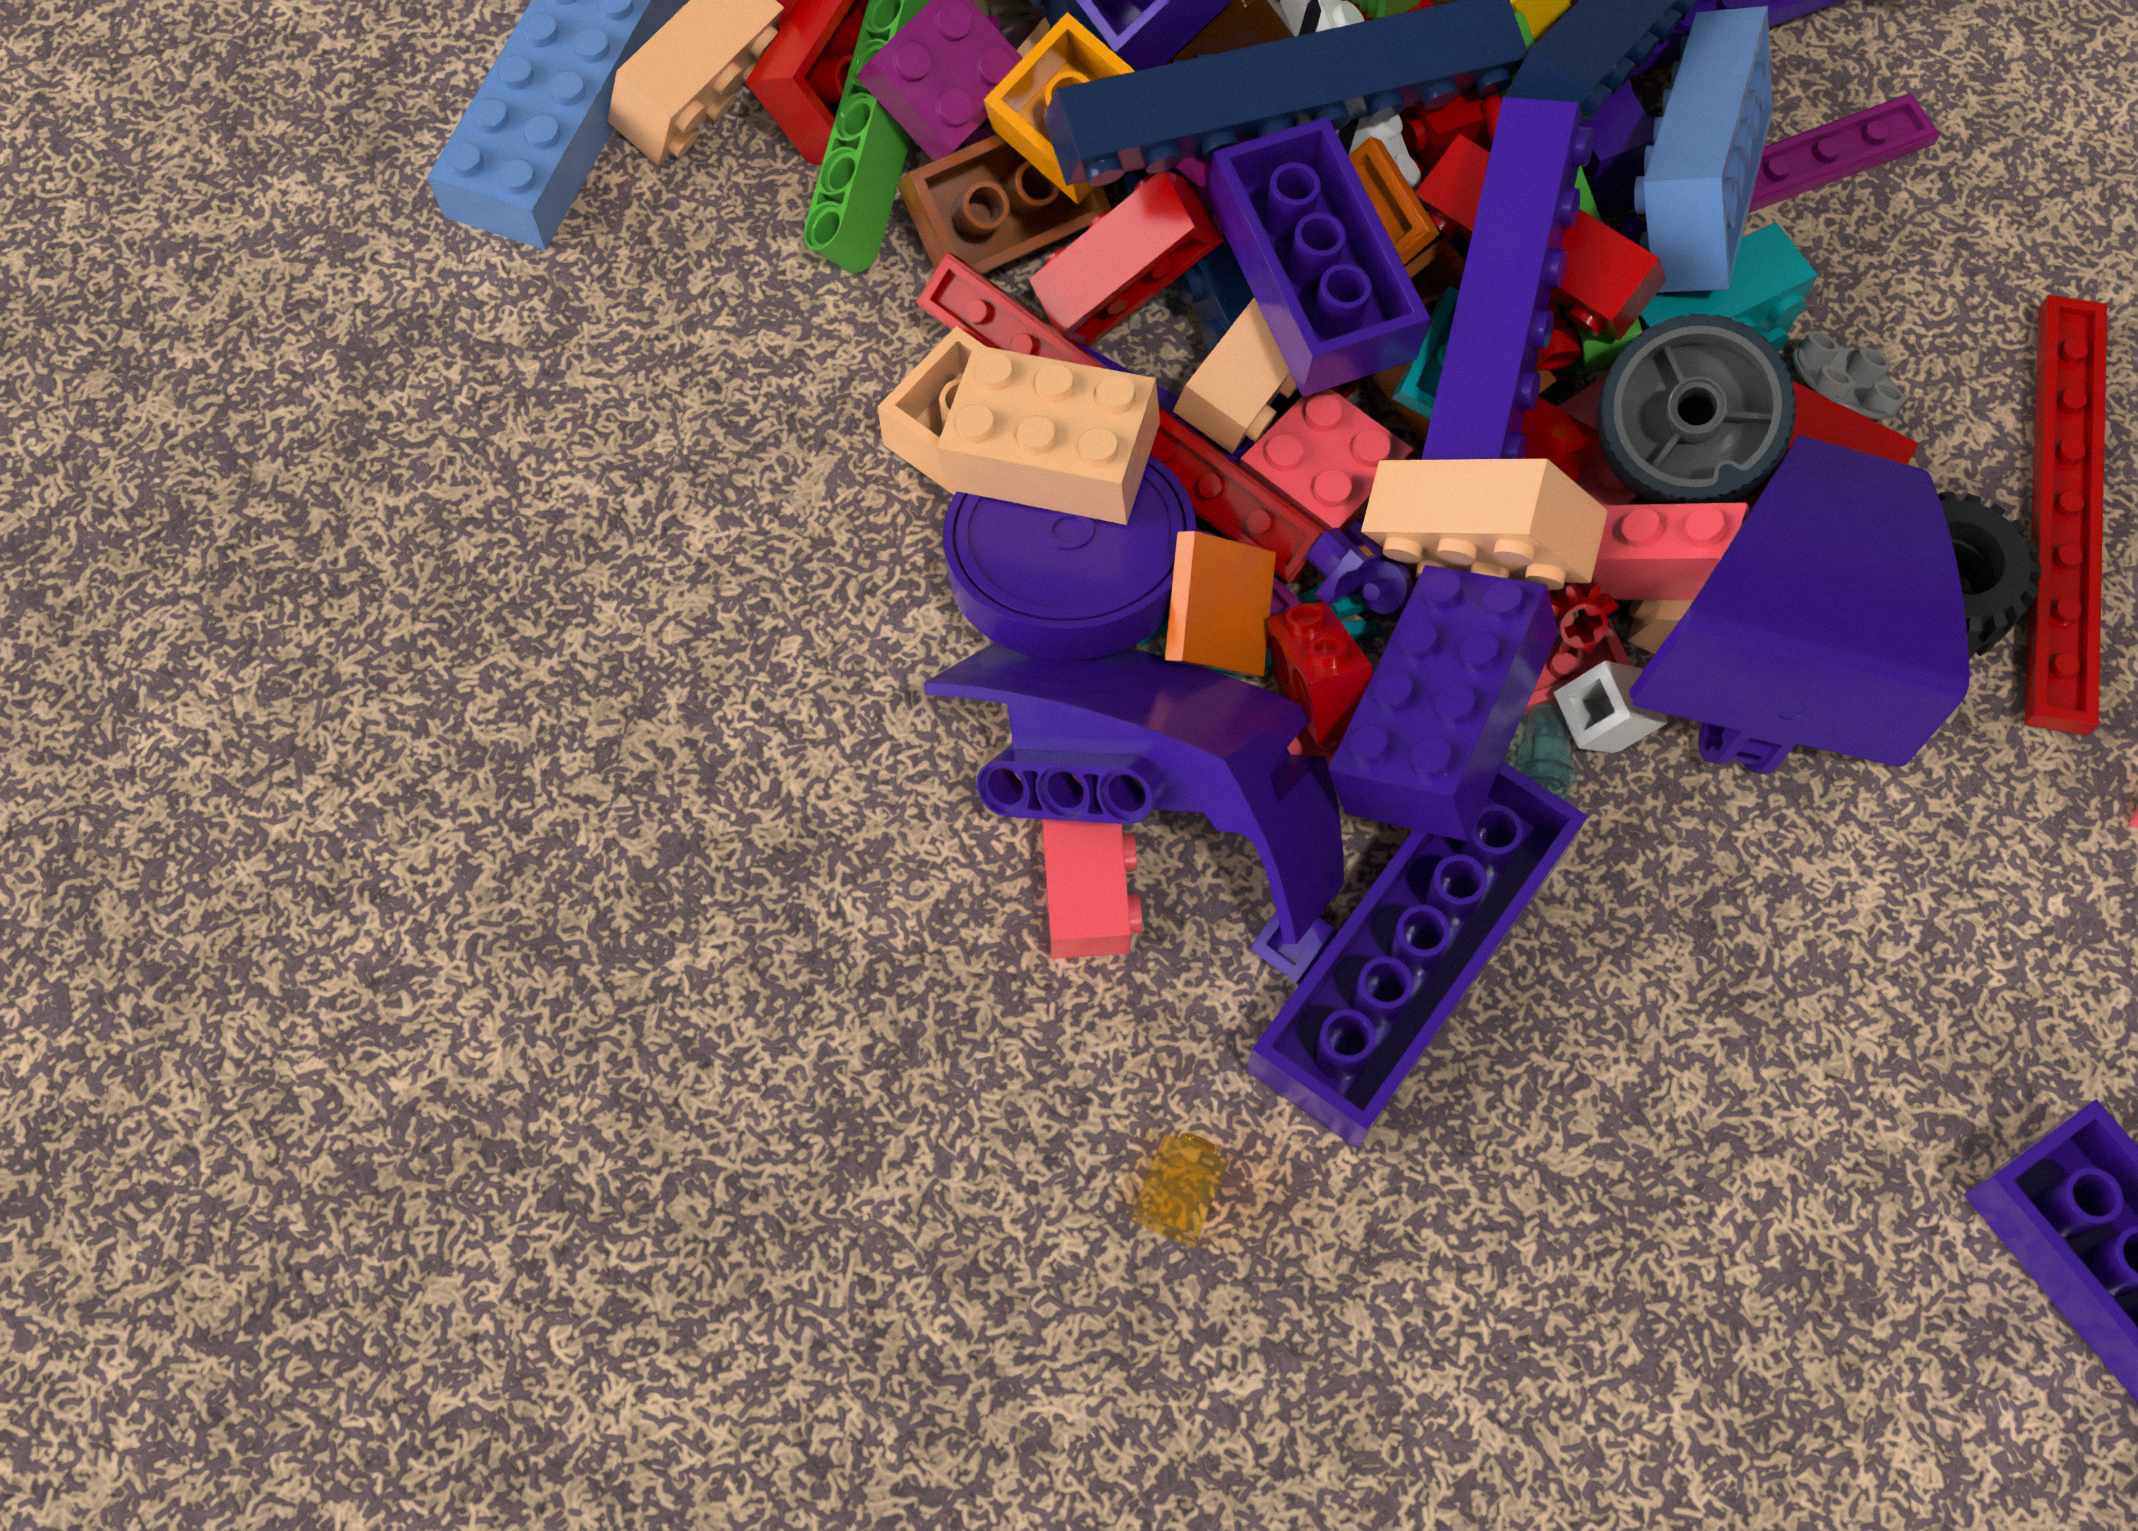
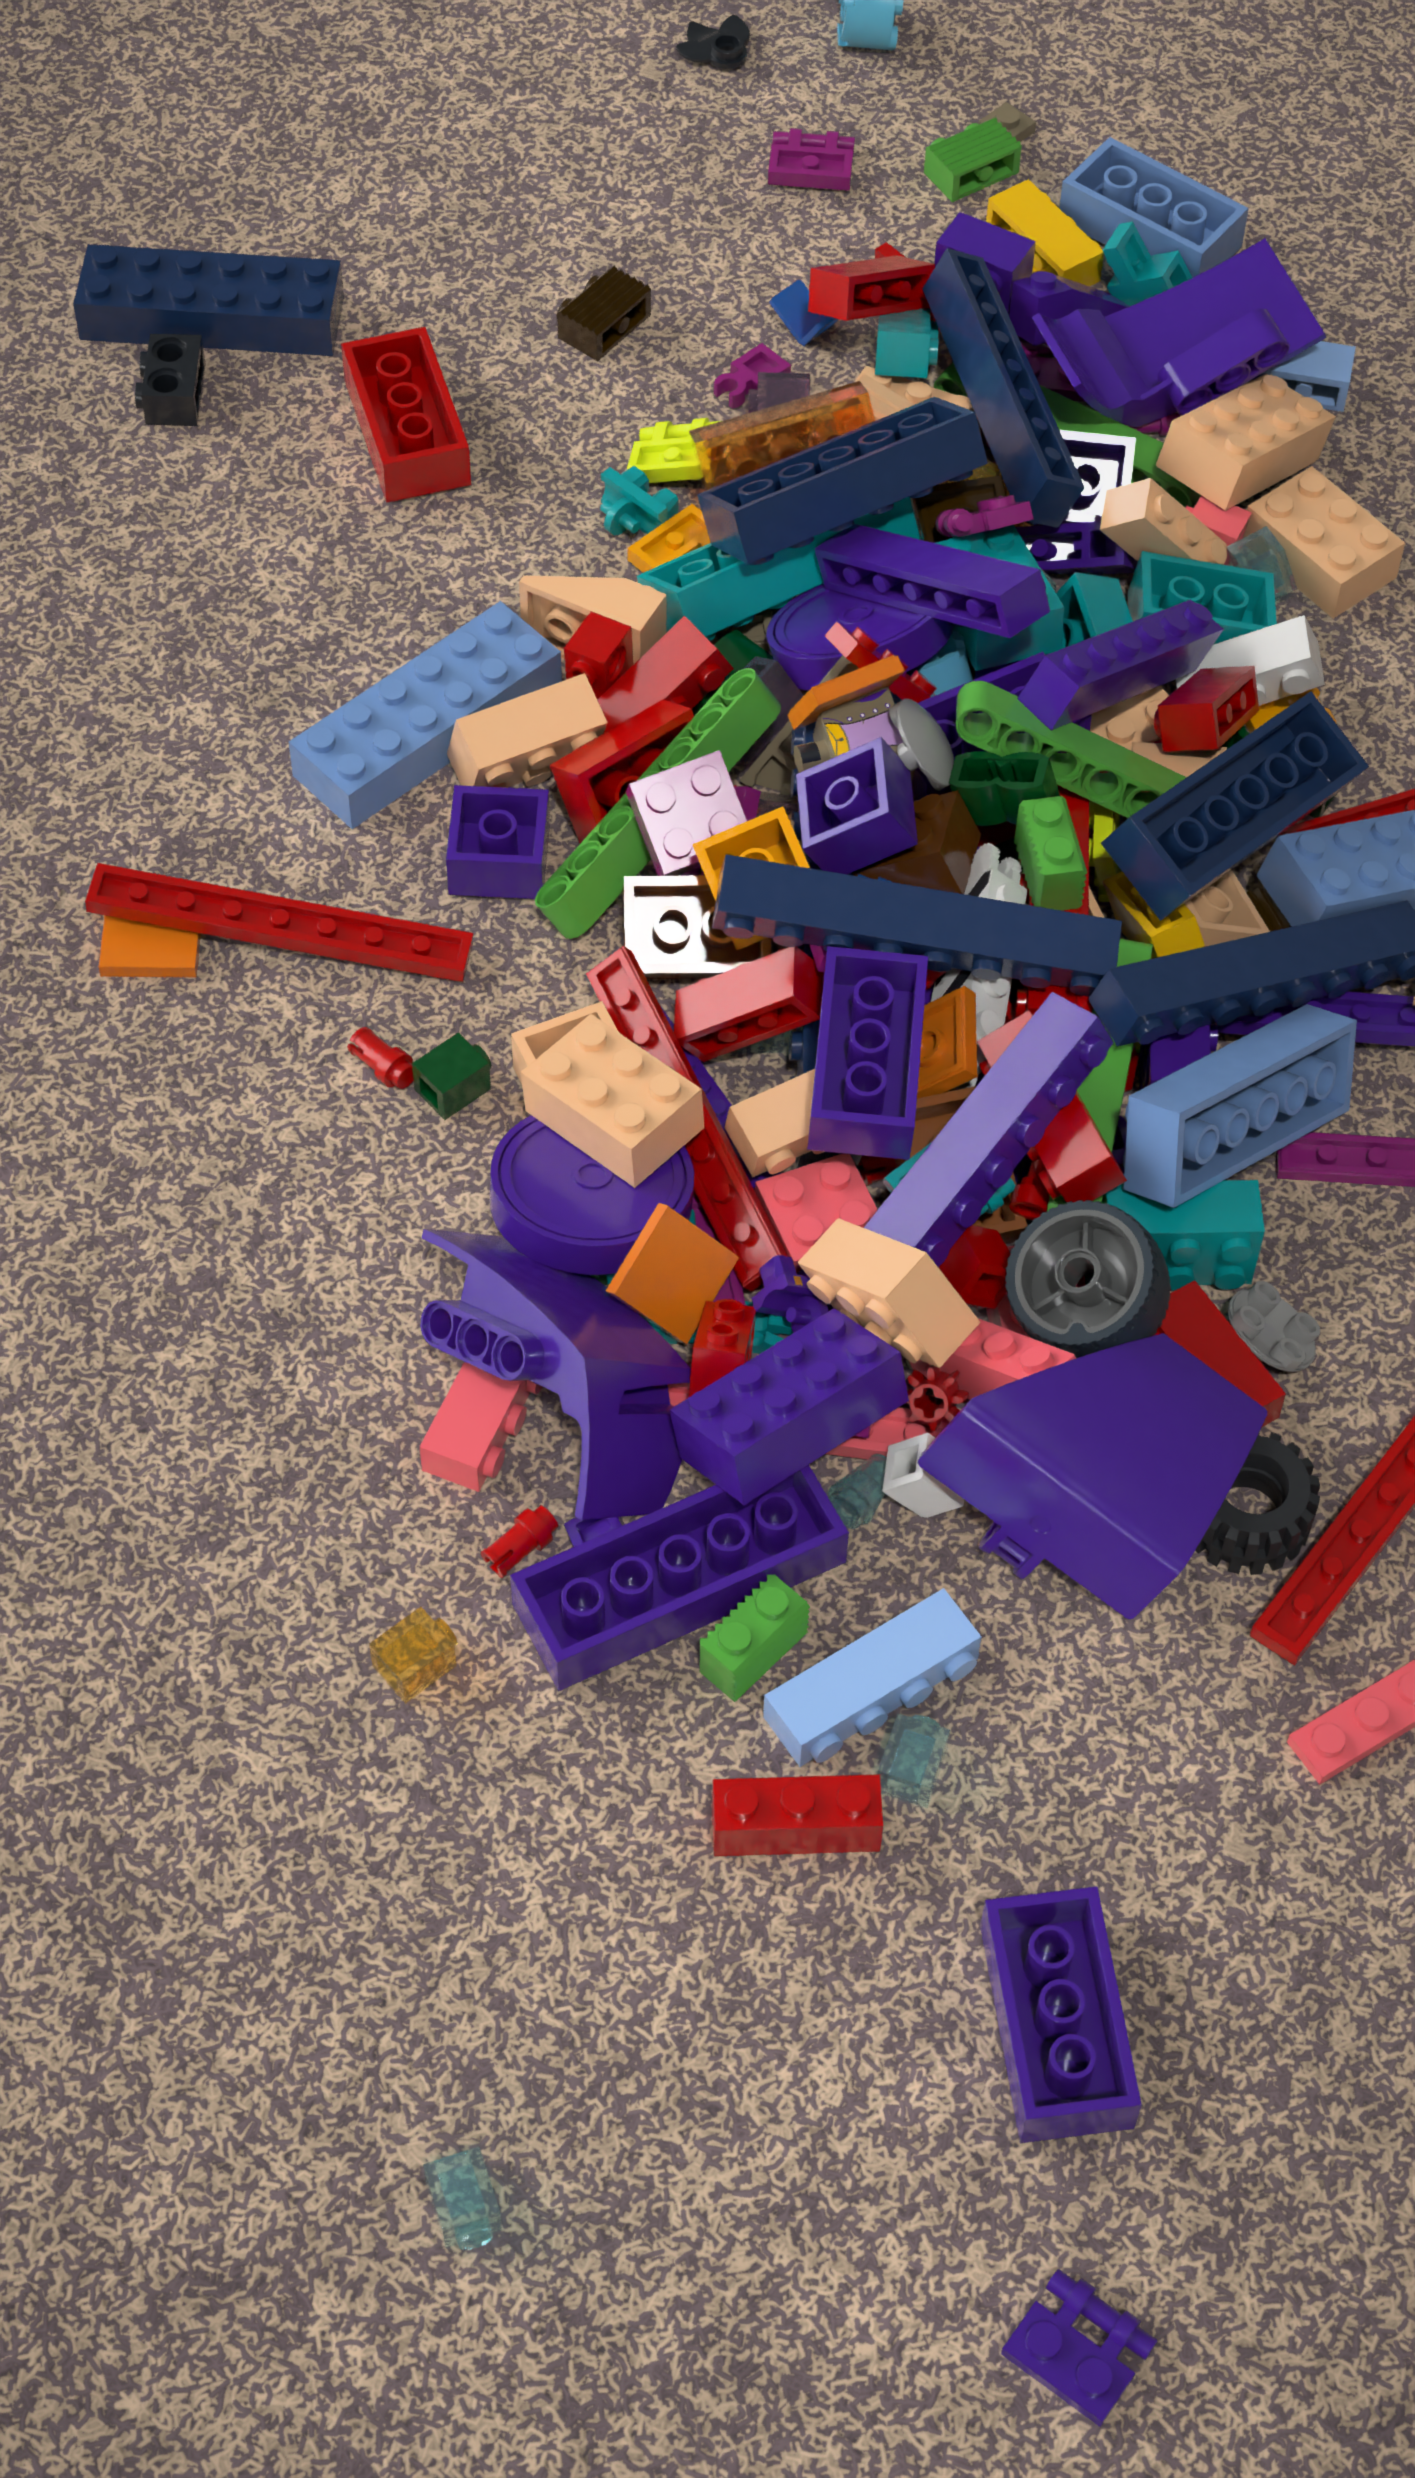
camera: 25 degrees right, 10 degrees down
(384, 467) = (147, 950): none -> orange tile
(524, 391) = (279, 922): none -> red plate
(727, 194) = (498, 841): none -> dark purple brick
(747, 500) = (389, 1064): none -> red animal
(826, 483) = (452, 1075): none -> dark green brick
(1220, 976) = (530, 1531): none -> red animal
(1539, 983) = (753, 1637): none -> bright green brick
(1689, 968) = (872, 1678): none -> light blue brick
(1711, 1169) = (797, 1815): none -> red brick
(1789, 1039) = (913, 1759): none -> clear light blue brick

